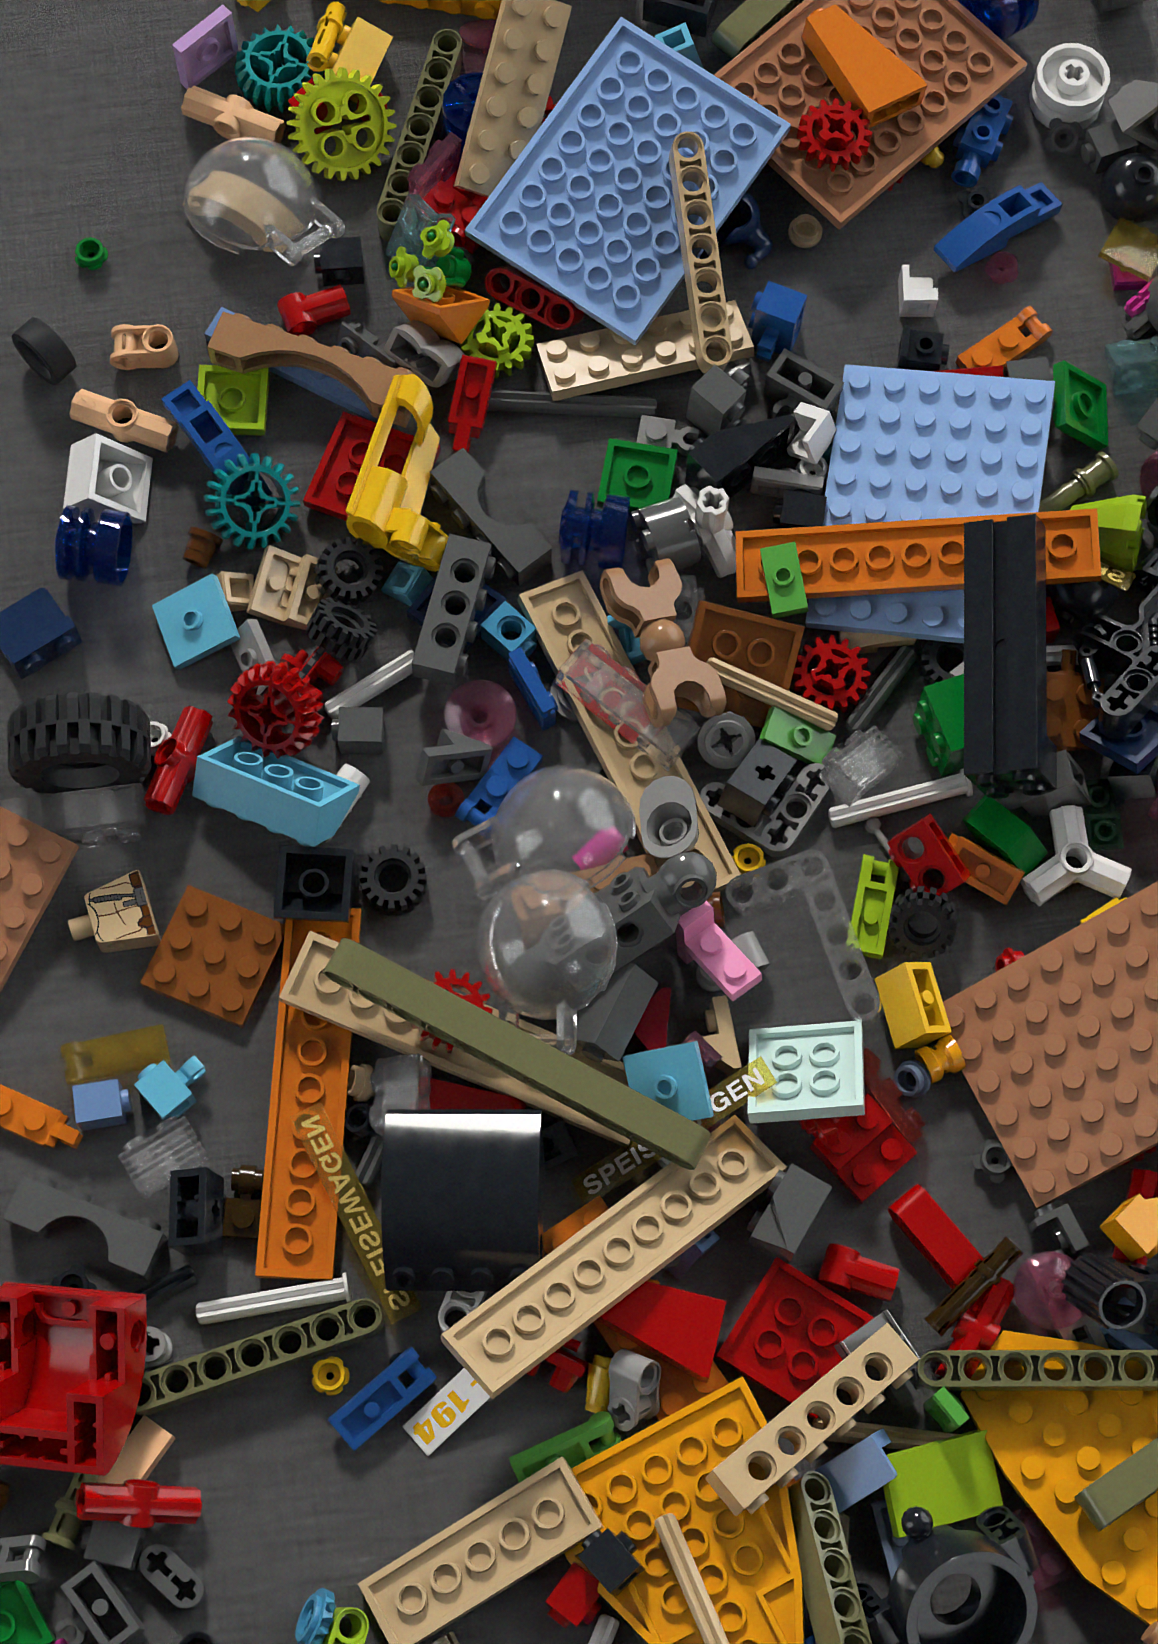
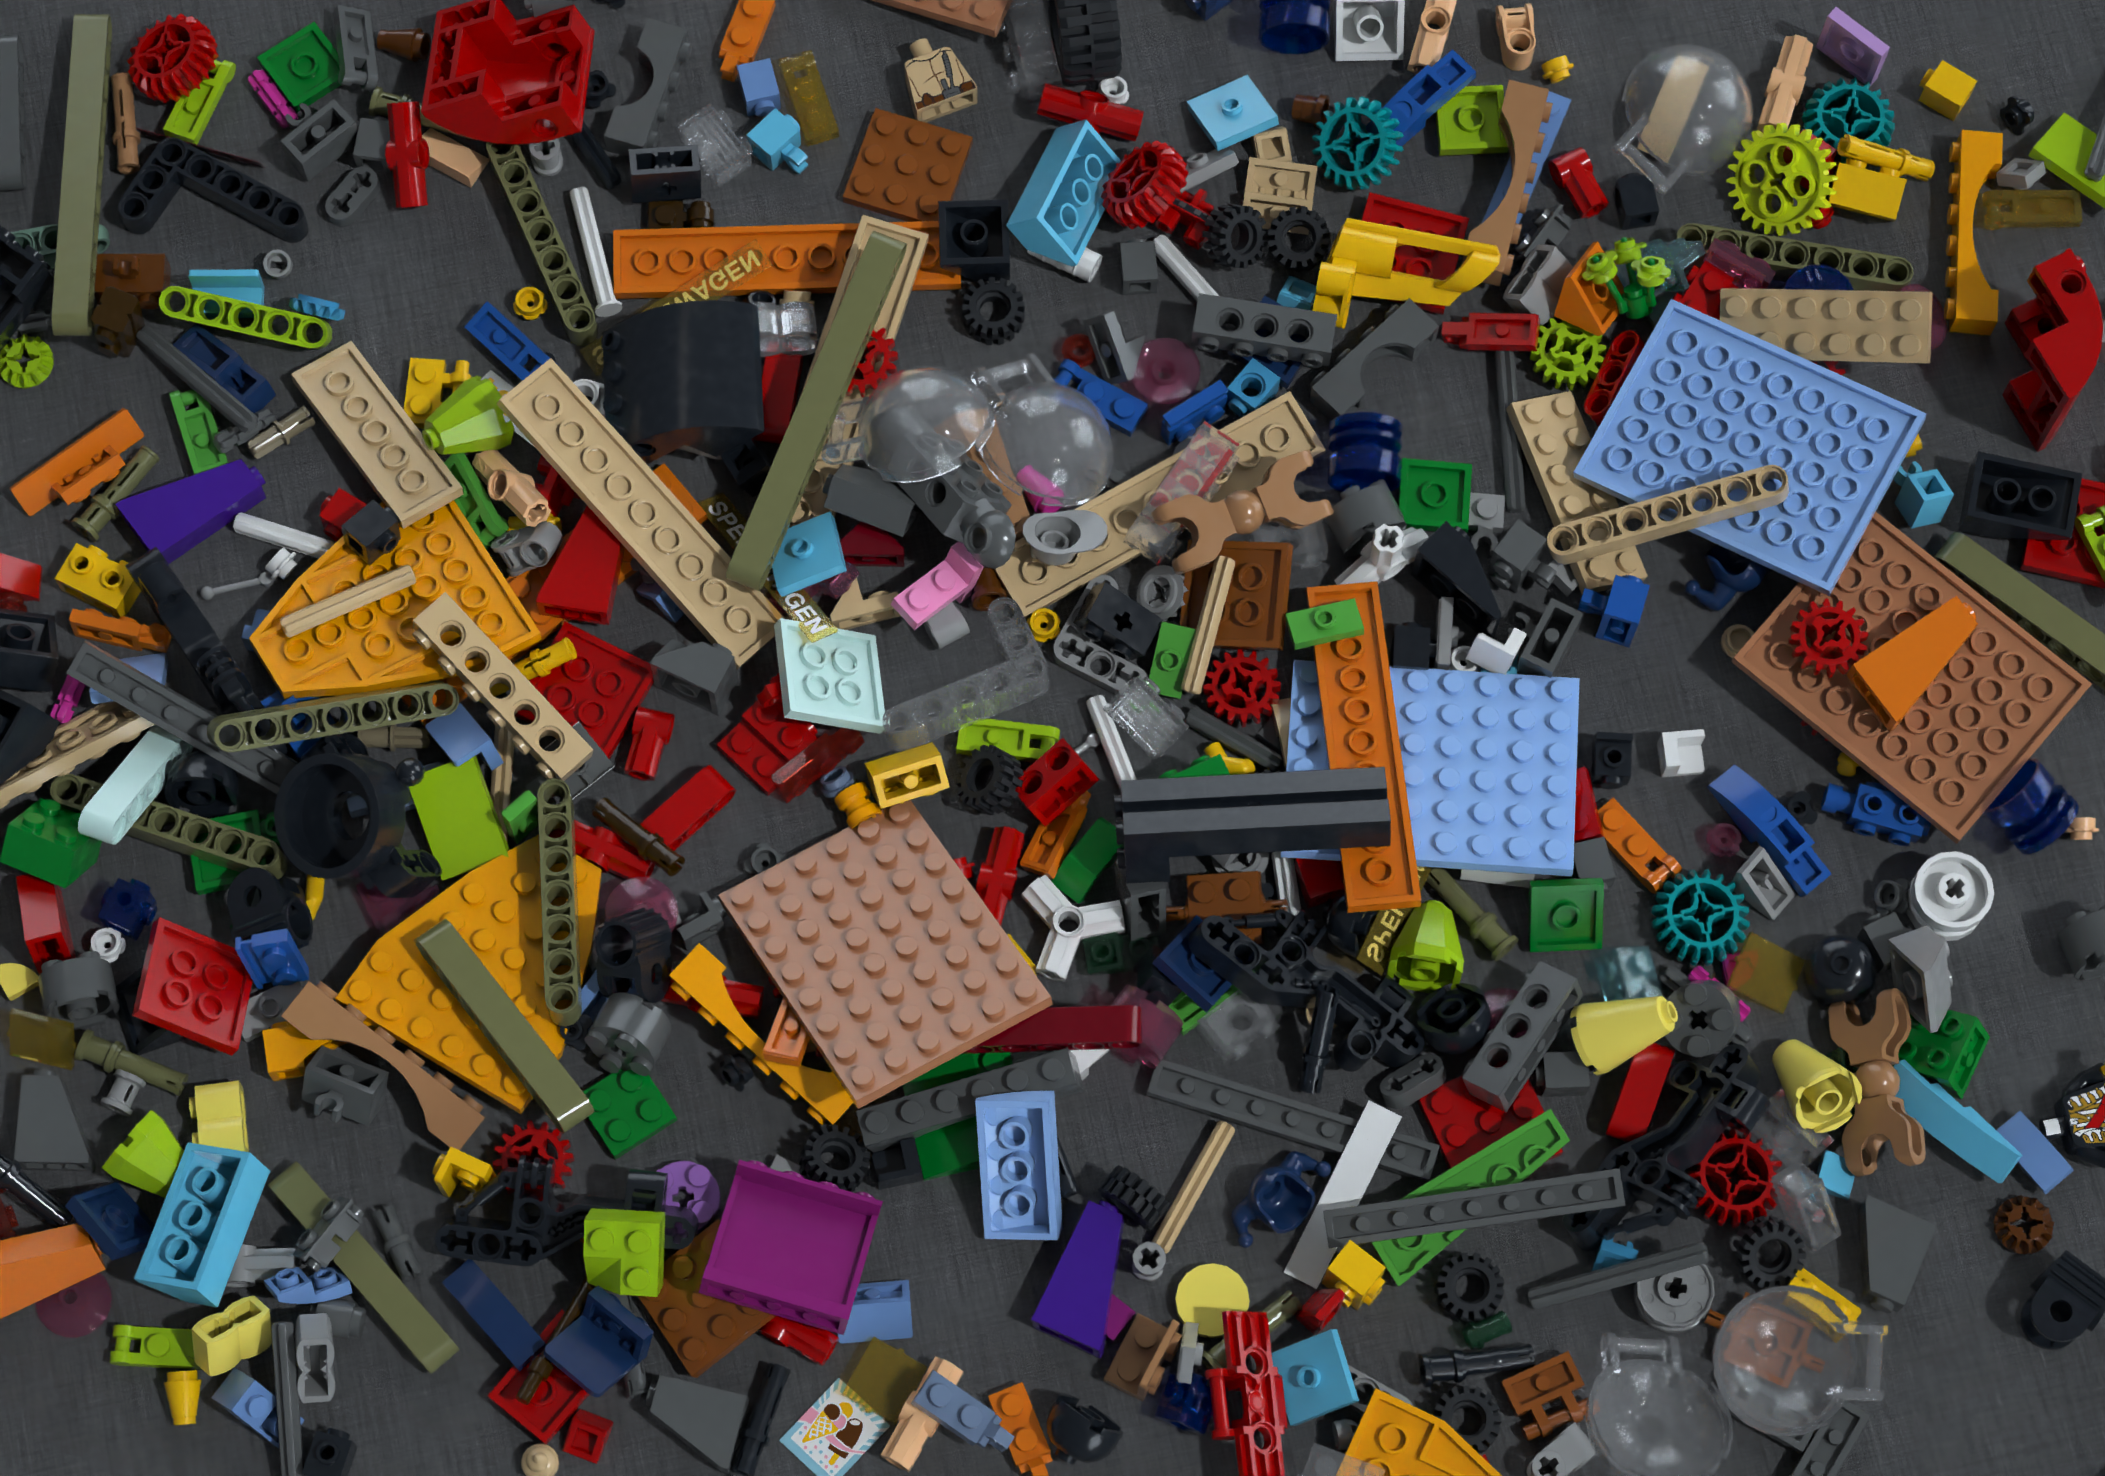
camera: 85 degrees right, 0 degrees up
(185, 316) = (1557, 69): none -> yellow plate
(426, 1501) = (426, 386): none -> yellow plate
(479, 1445) = (468, 420): none -> lime cone
(561, 1402) = (511, 487): none -> light nougat piece
(765, 1360) = (540, 663): none -> yellow pin
(909, 697) = (1234, 765): none -> yellow arm
(1019, 926) = (999, 872): none -> red piece
(1046, 243) = (1763, 884): none -> light grey slope
(1070, 304) = (1672, 924): none -> teal gear

